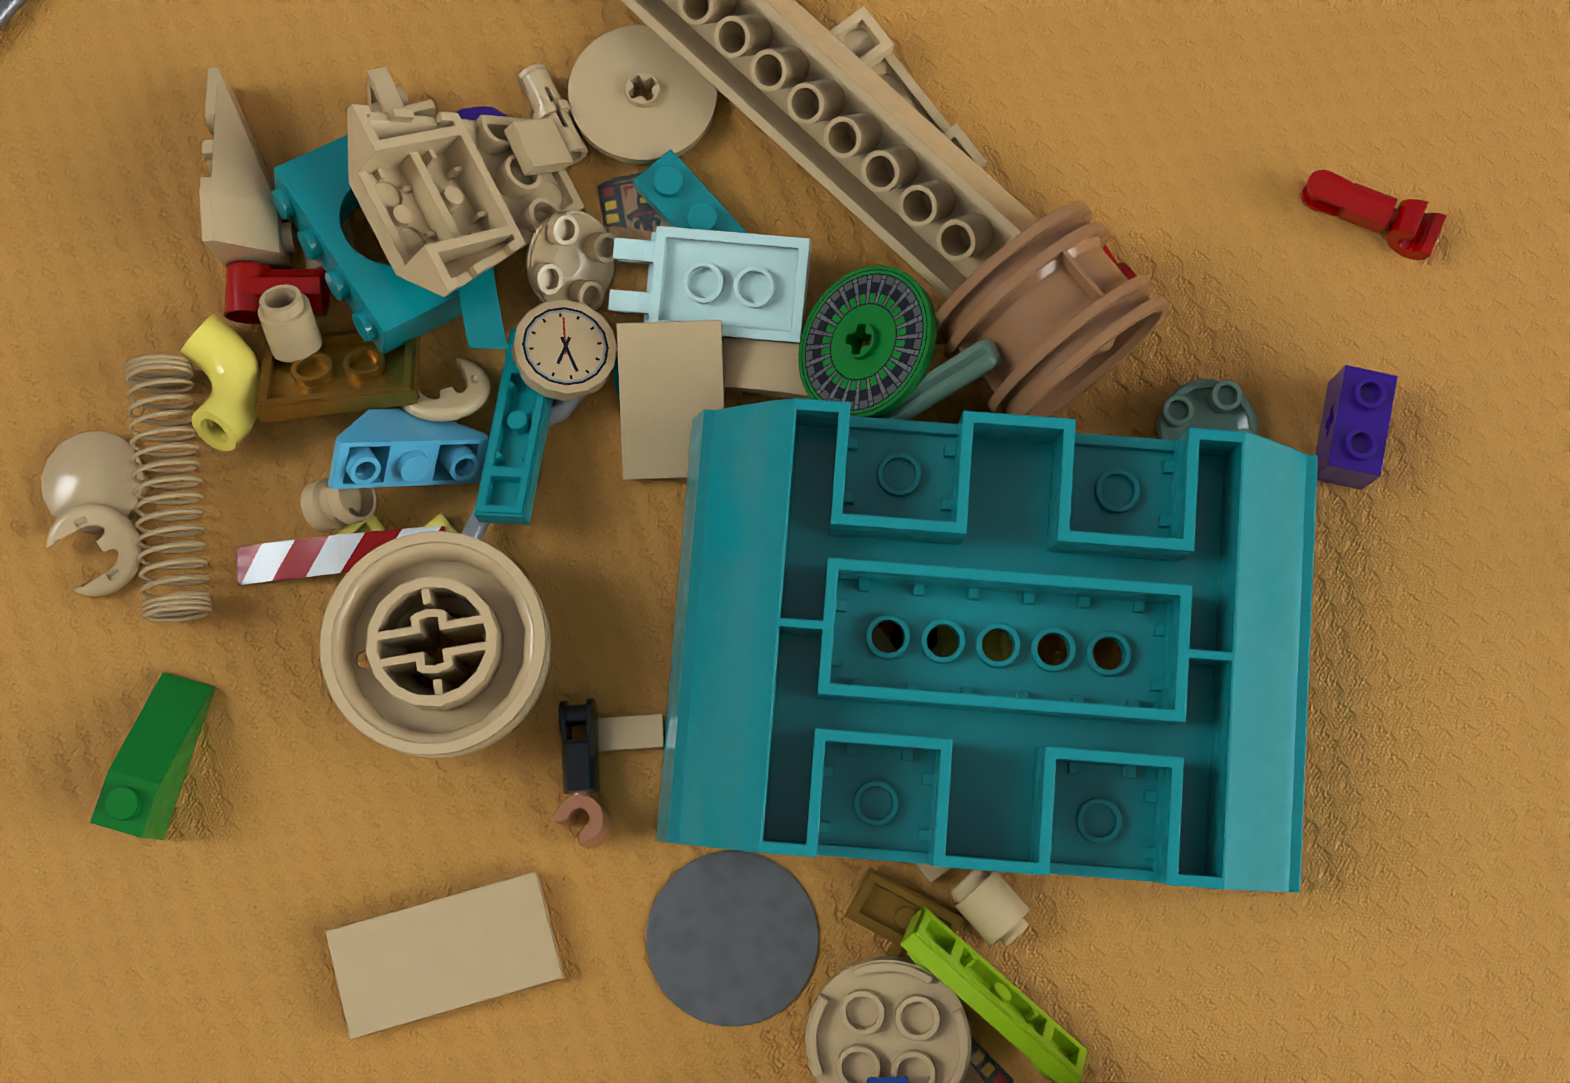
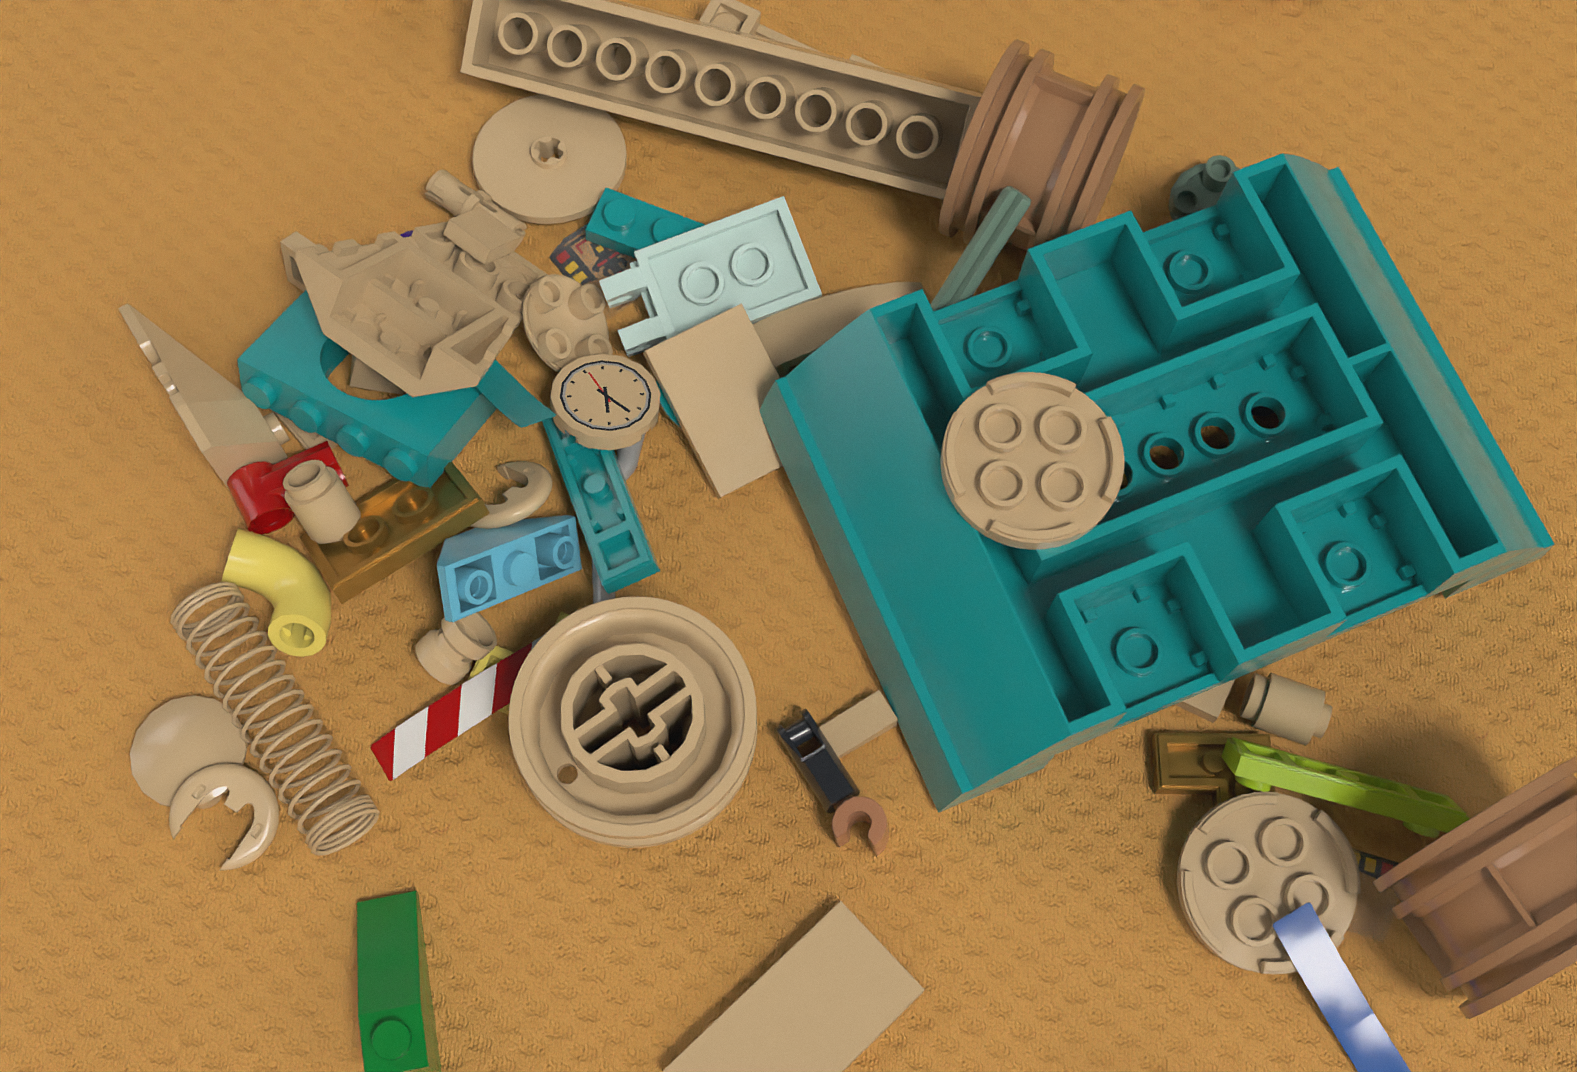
camera: 30 degrees left, 10 degrees down
(732, 938) = (1062, 870): flat silver sticker -> none
(856, 603) = (1031, 461): none -> tan tile
(903, 332) = (898, 214): piece -> none
(1355, 427) = (1342, 133): dark purple brick -> none

